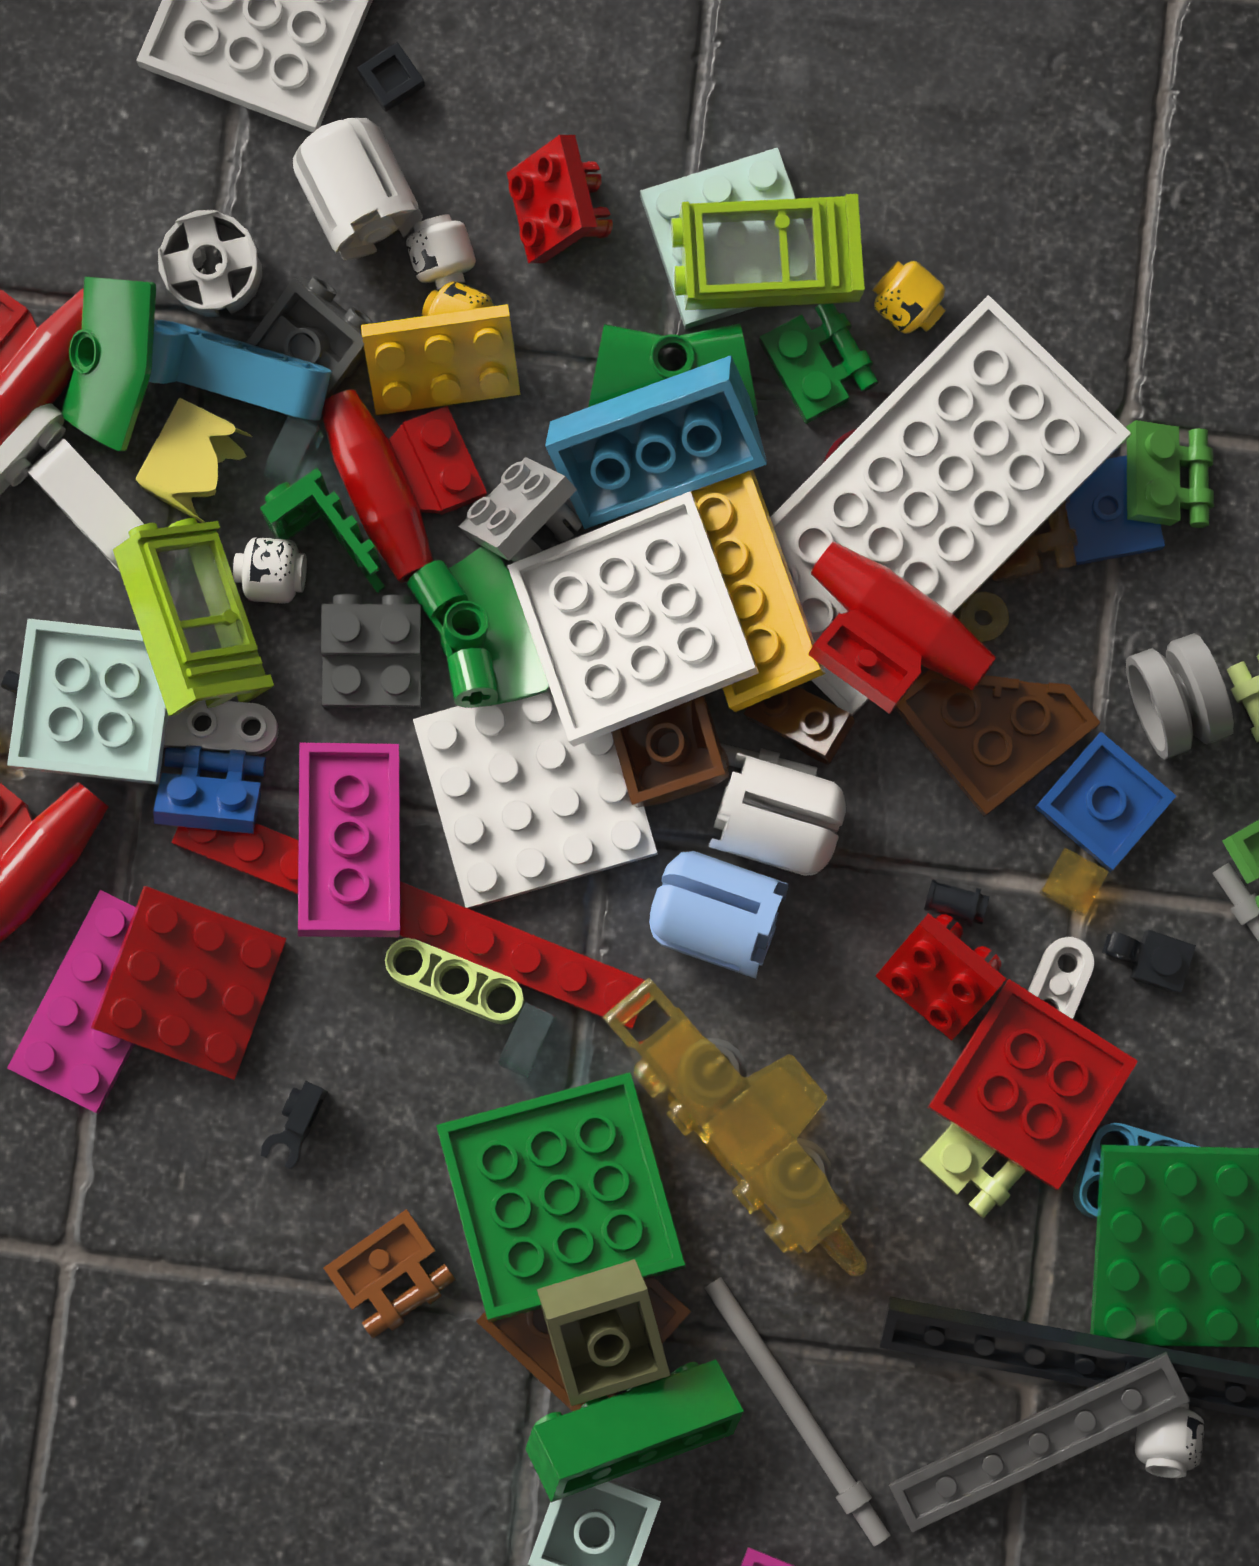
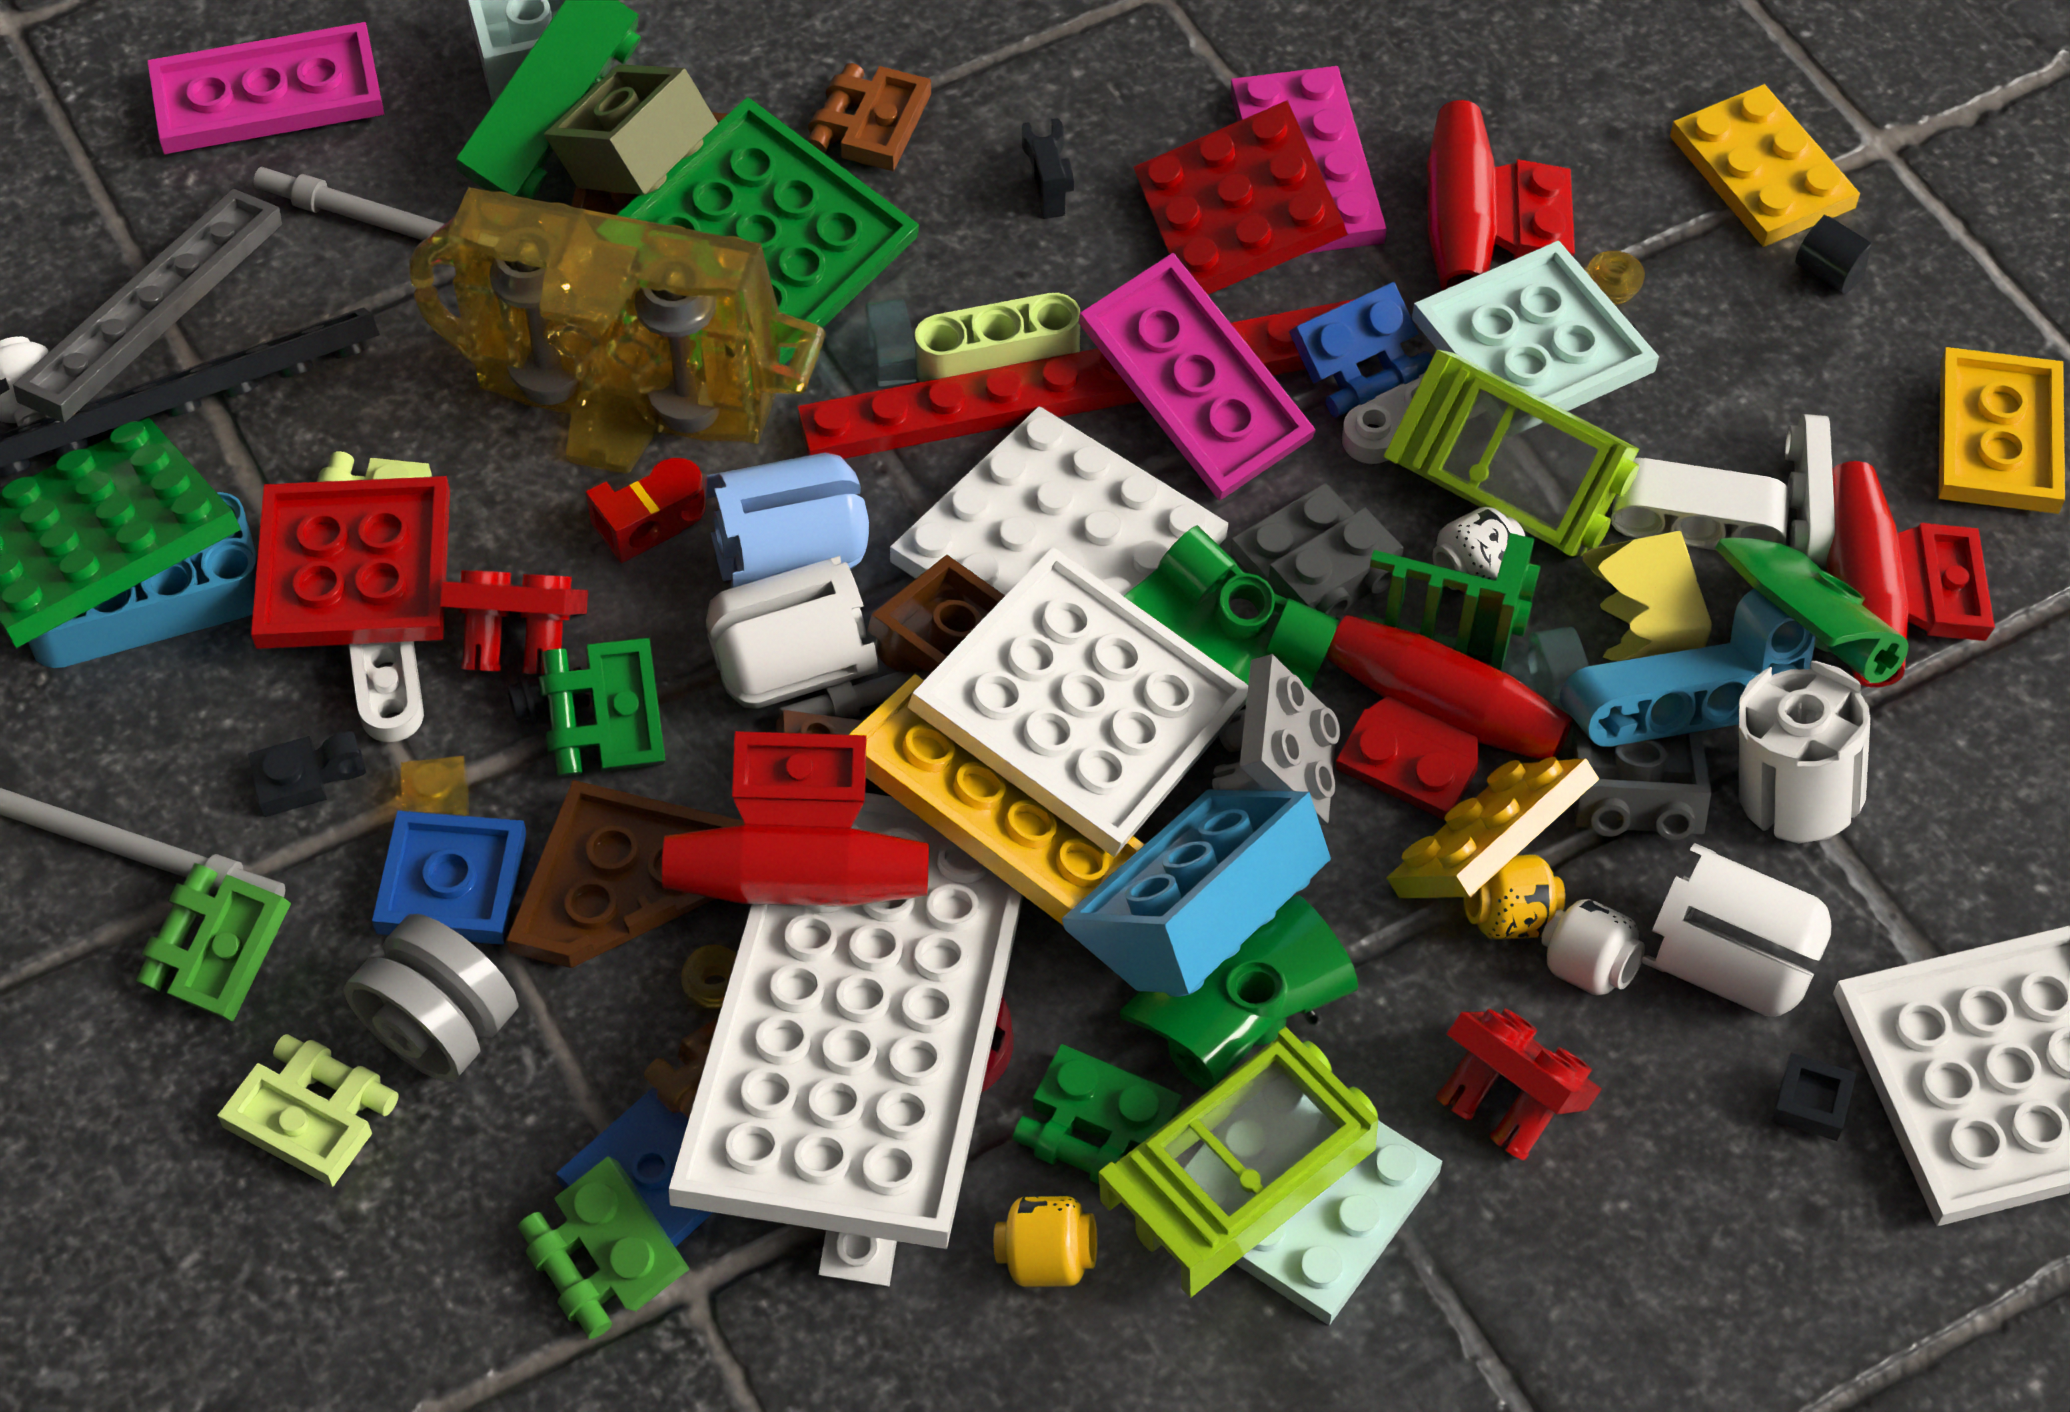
camera: 145 degrees right, 25 degrees down
(793, 1006) = (649, 508): none -> red leg
(918, 846) = (622, 702): none -> green plate

